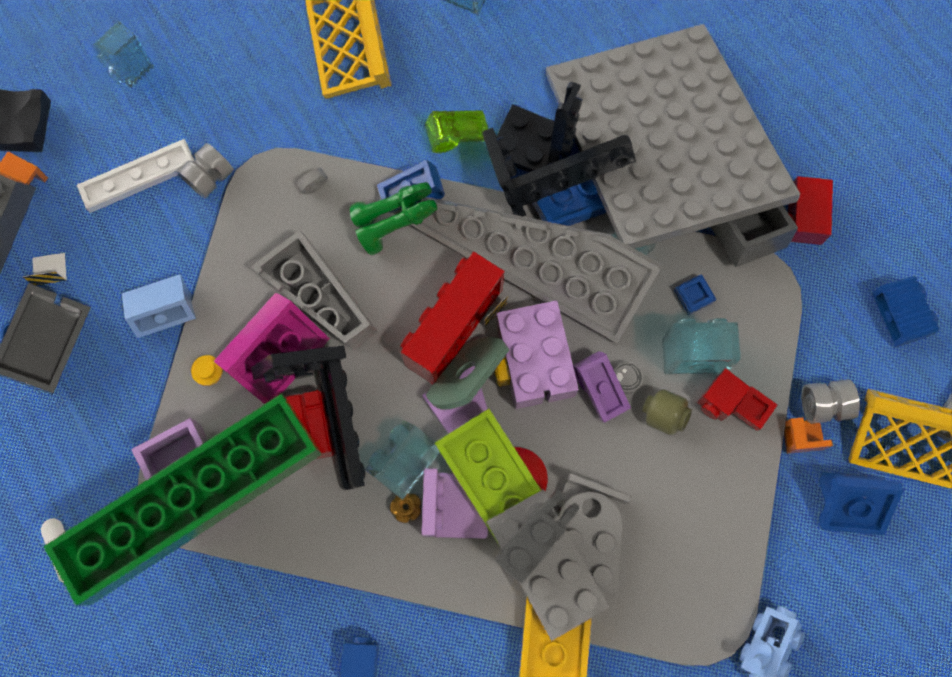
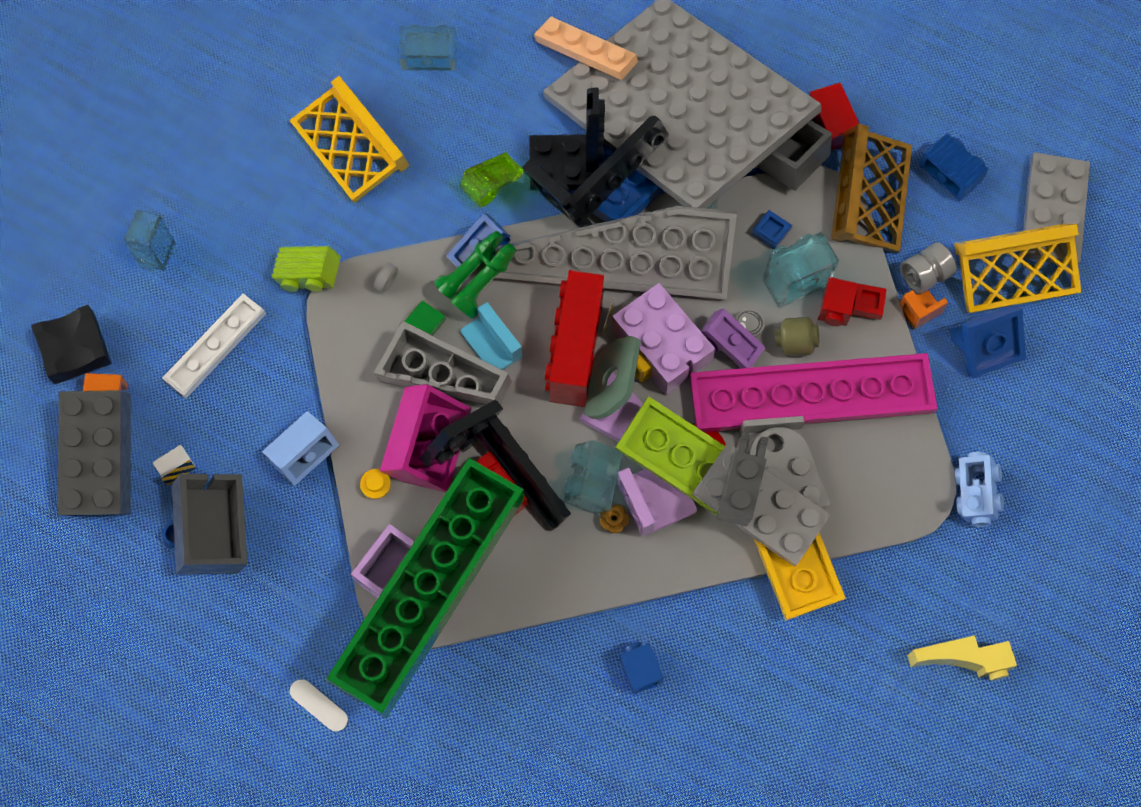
camera: 25 degrees left, 5 degrees down
(205, 170) = (279, 315): light grey wheel -> none
(247, 140) = (306, 268): none -> lime brick
(328, 237) = (426, 318): none -> green tile
(378, 284) = (492, 339): none -> medium azure panel
(605, 44) = (586, 48): none -> light nougat plate
(657, 474) = (814, 390): none -> dark pink plate
(790, 290) = (852, 181): none -> pearl gold fence

